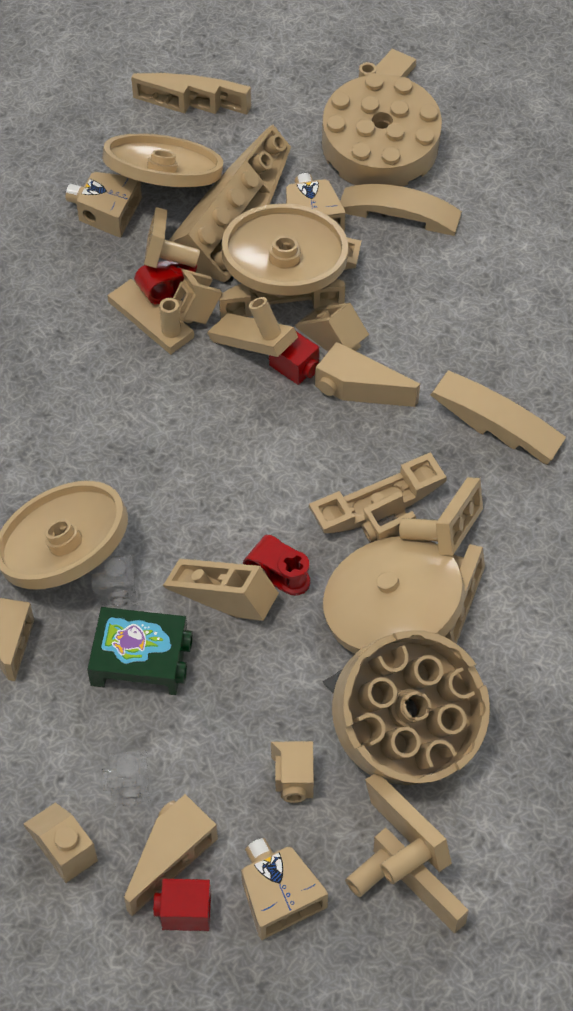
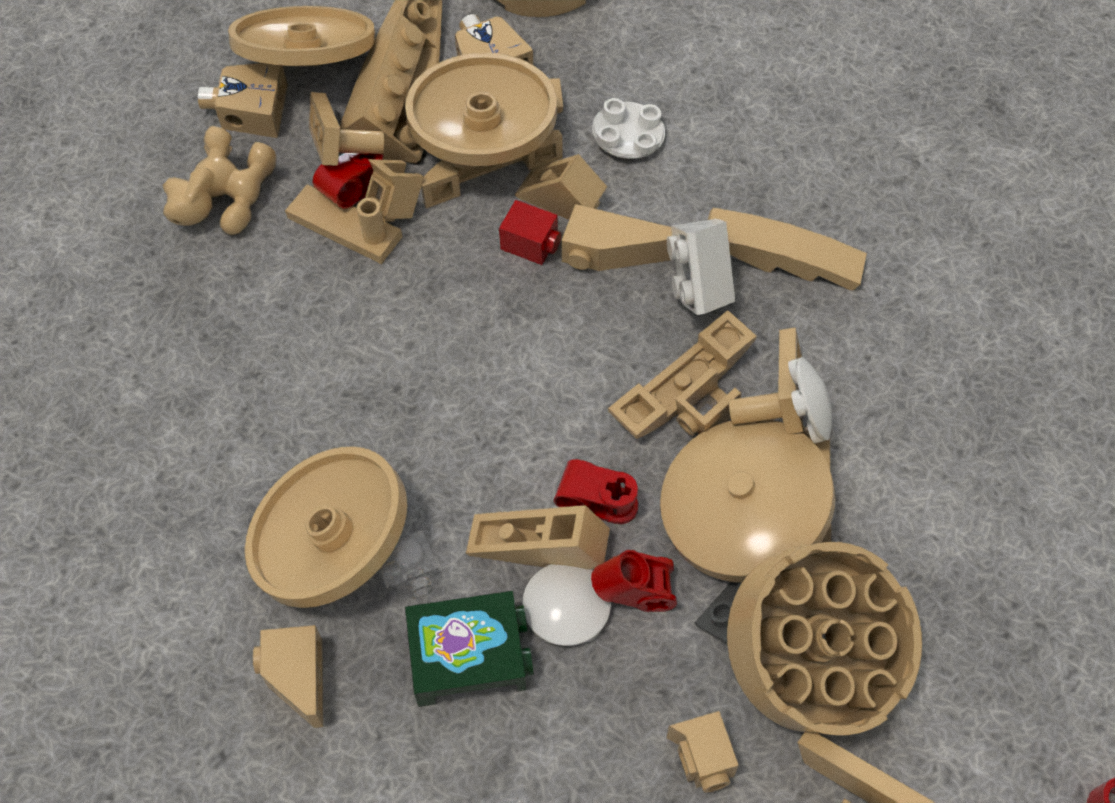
camera: 15 degrees left, 5 degrees up
(62, 256) = (215, 176): none -> tan animal
(227, 641) = (564, 606): none -> white dish
(254, 334) = (479, 218): tan piece -> none
(285, 635) = (636, 581): none -> red piece
(402, 203) = (589, 25): tan slope -> none
(405, 294) = (628, 129): none -> white dish
(422, 412) = (702, 265): none -> white slope
(464, 530) = (811, 399): none -> white dish

